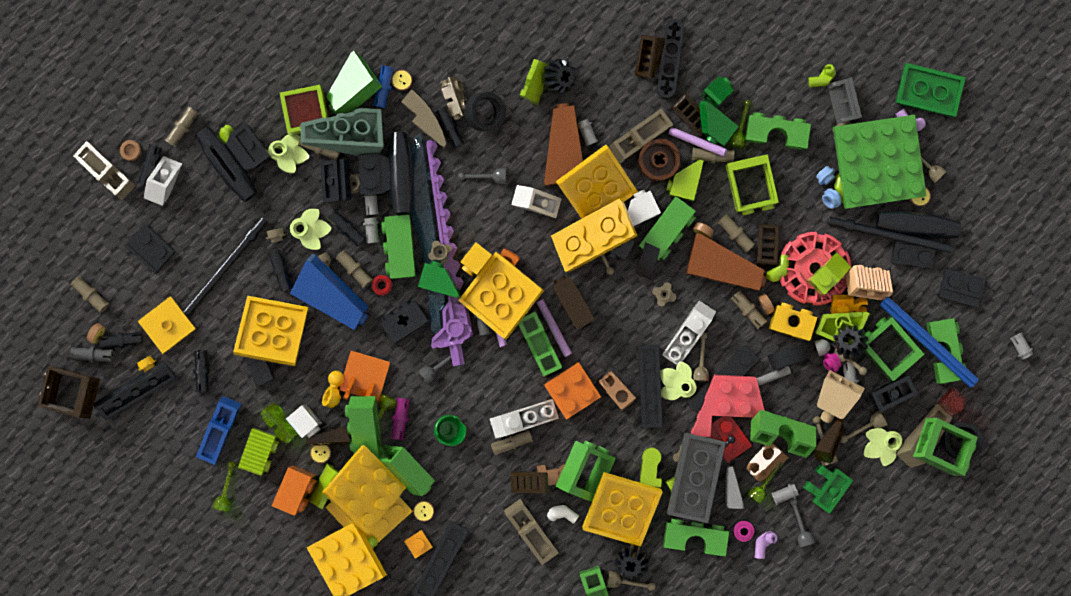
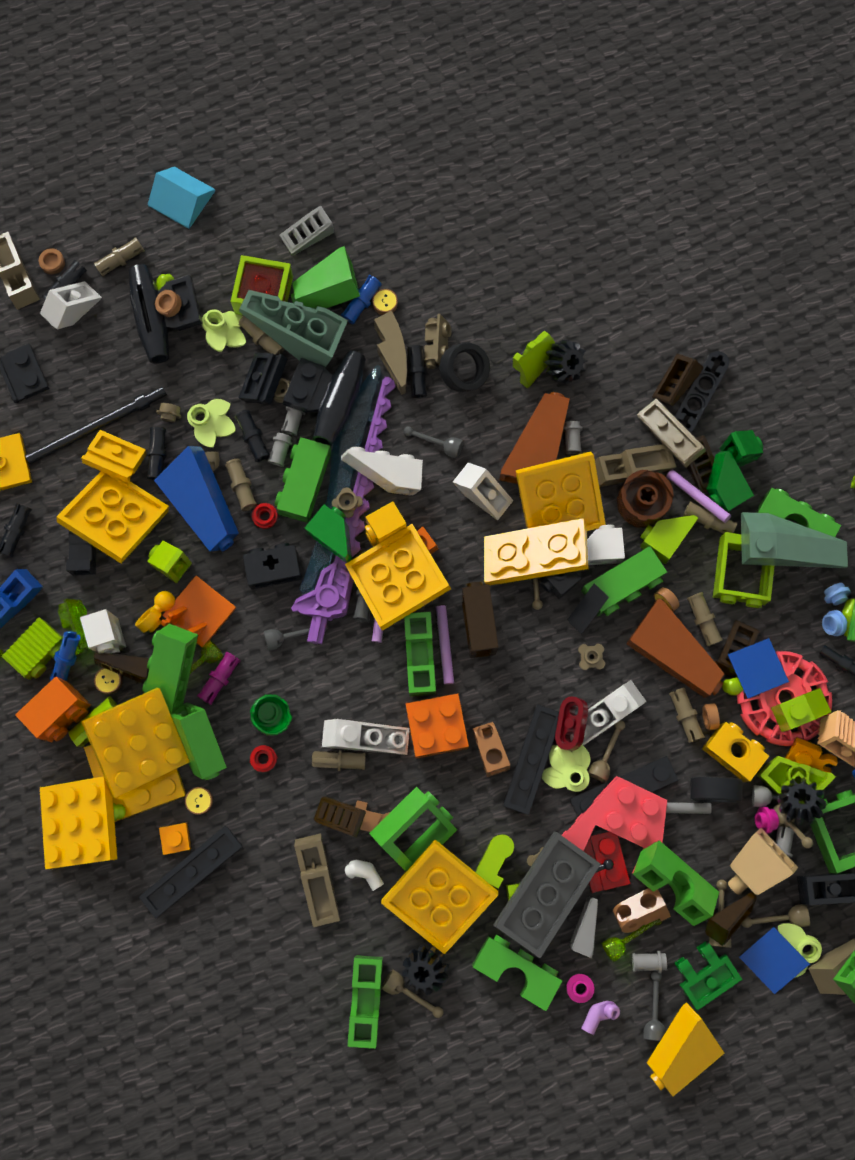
camera: 25 degrees right, 10 degrees down
(206, 56) = (179, 196): none -> medium azure slope
(239, 152) = (168, 303): none -> medium nougat tile
(250, 286) = (114, 456): none -> yellow plate
(284, 449) = (66, 655): none -> blue pin
(323, 51) = (311, 238): none -> light grey slope
(326, 348) = (169, 561): none -> lime slope
(450, 465) = (254, 758): none -> red plate
(464, 216) = (392, 473): none -> white slope
(659, 100) = (671, 433): none -> dark tan tile
(667, 350) = (571, 723): none -> dark red plate
(738, 139) = (771, 477): clear neon green hinge -> none
(771, 155) = (785, 543): none -> sand green wedge
(787, 255) = (758, 668): none -> blue sticker
(829, 545) = (683, 1052): none -> yellow slope
(871, 458) = (774, 960): none -> blue sticker

